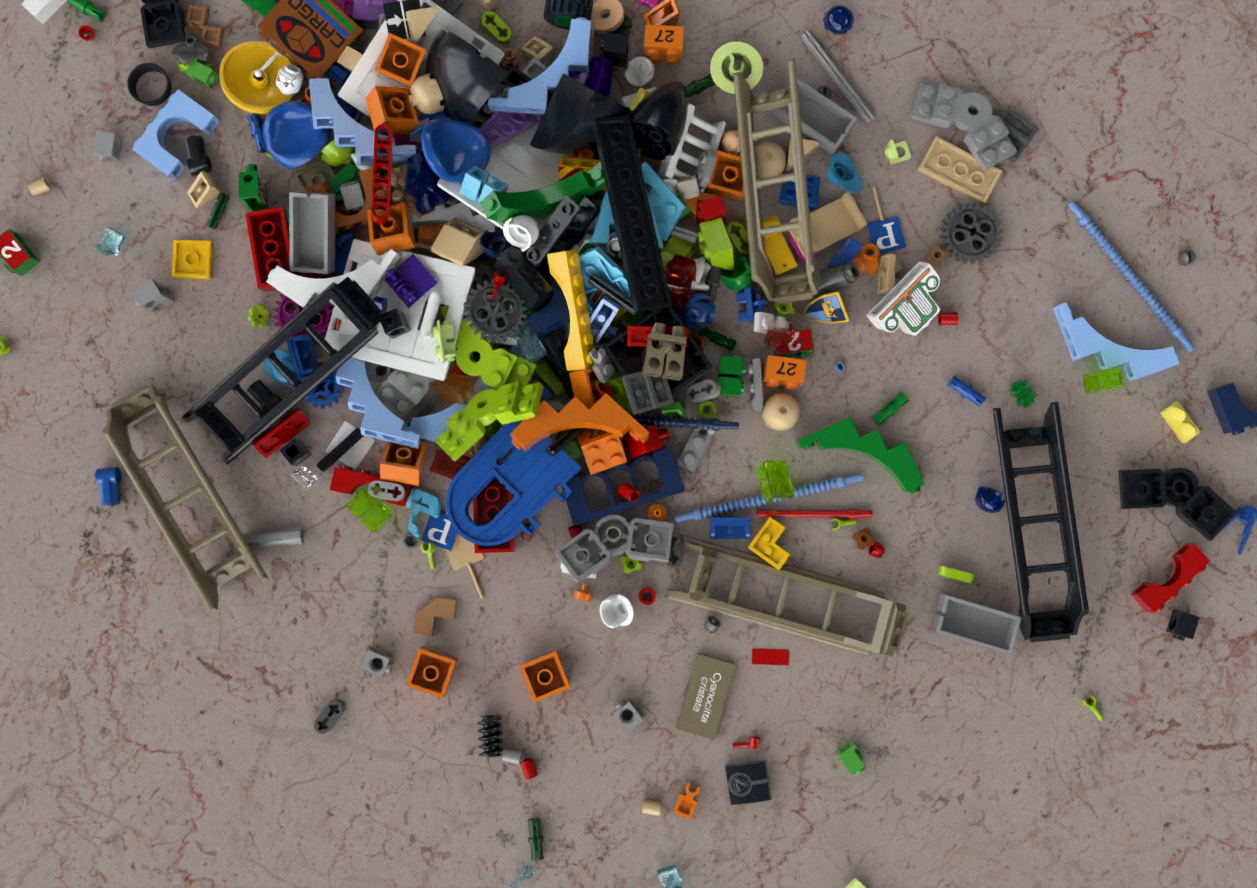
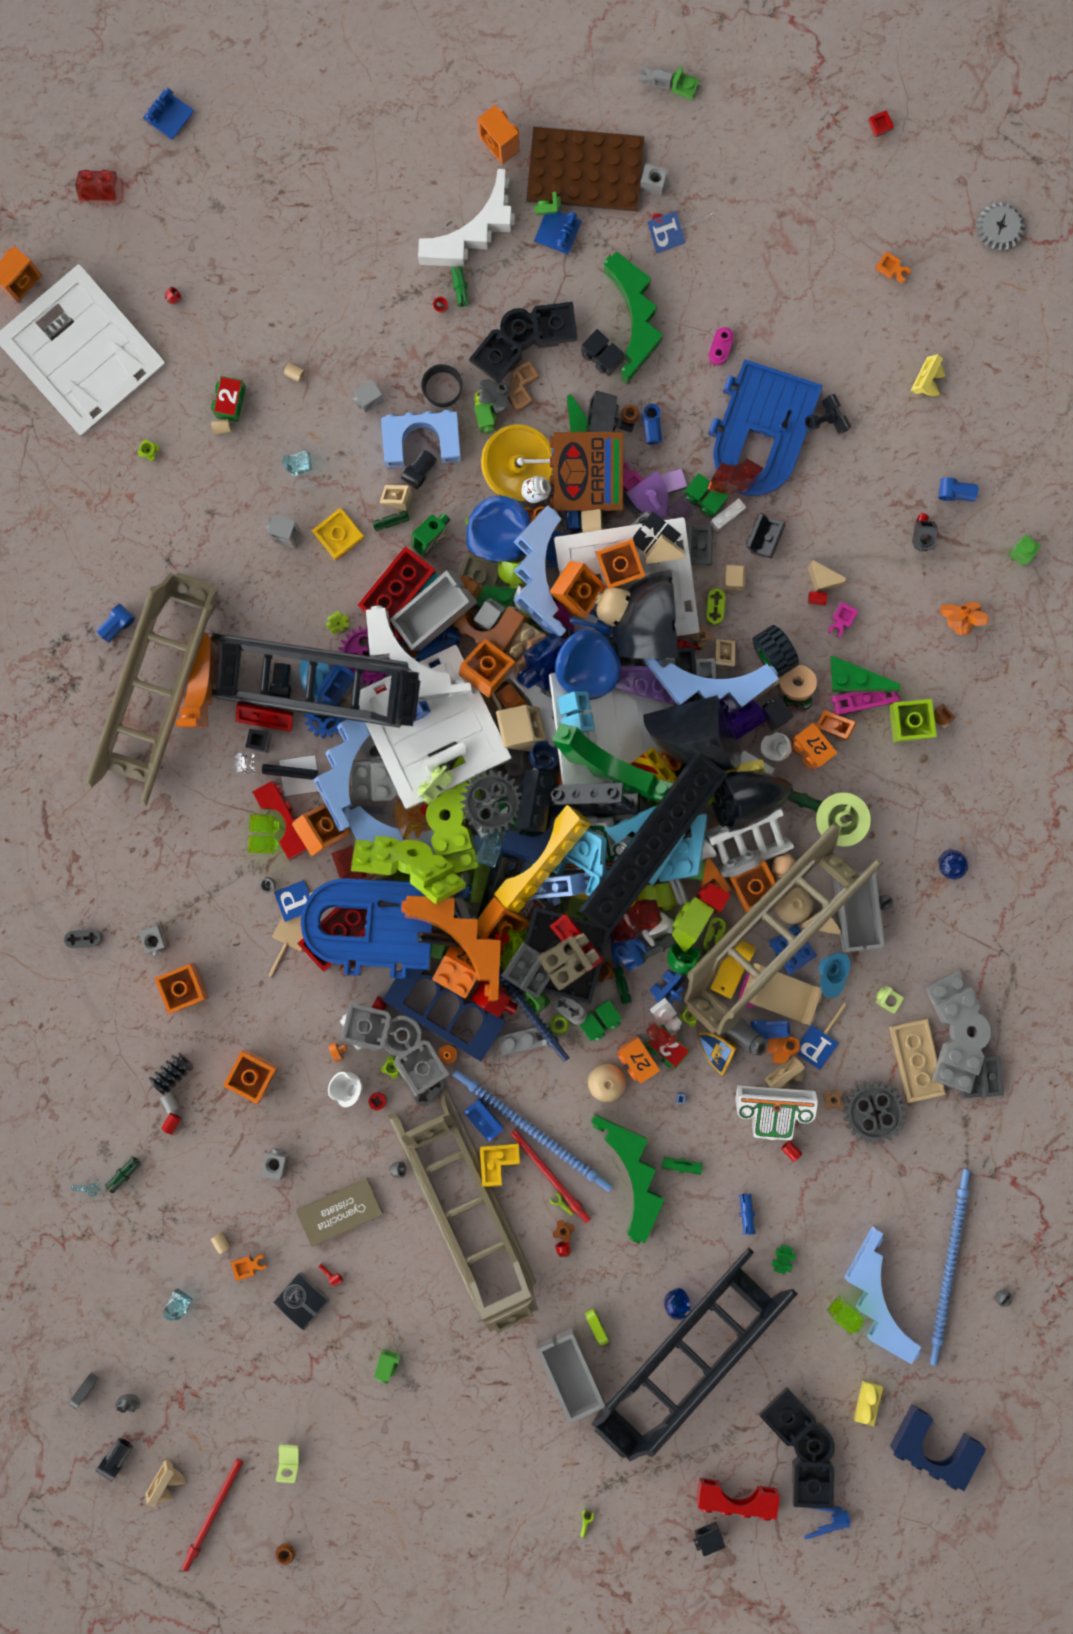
camera: 55 degrees right, 0 degrees up
(30, 276) = (221, 426): none -> tan hinge
(210, 455) = (199, 692): none -> orange arch
(257, 132) = (476, 498): blue pin -> none
(288, 536) = (189, 789): light grey axle -> none
(381, 164) = (528, 622): red beam -> none
(386, 495) = (284, 838): light grey beam -> none
(395, 323) = (417, 734): black brick -> none
(410, 280) = (459, 717): dark purple hinge -> none
(425, 618) = (218, 946): medium nougat tile -> none
(432, 501) = (304, 880): medium azure helmet -> none
(432, 547) = (275, 905): lime hand -> none
(498, 281) = (515, 785): red hand -> none
(521, 231) = (567, 771): white helmet -> none
(603, 366) = (520, 920): light grey plate -> none
(611, 292) = (581, 878): black axle -> none
(629, 492) = (443, 1020): red hinge -> none
(688, 188) = (716, 864): dark tan tile -> none
(755, 386) = (610, 1046): light grey hinge -> none
(770, 657) = (412, 1236): red sticker -> none
(774, 480) = (548, 1124): clear neon green bracket -> none
(838, 76) = (907, 902): light grey axle -> none

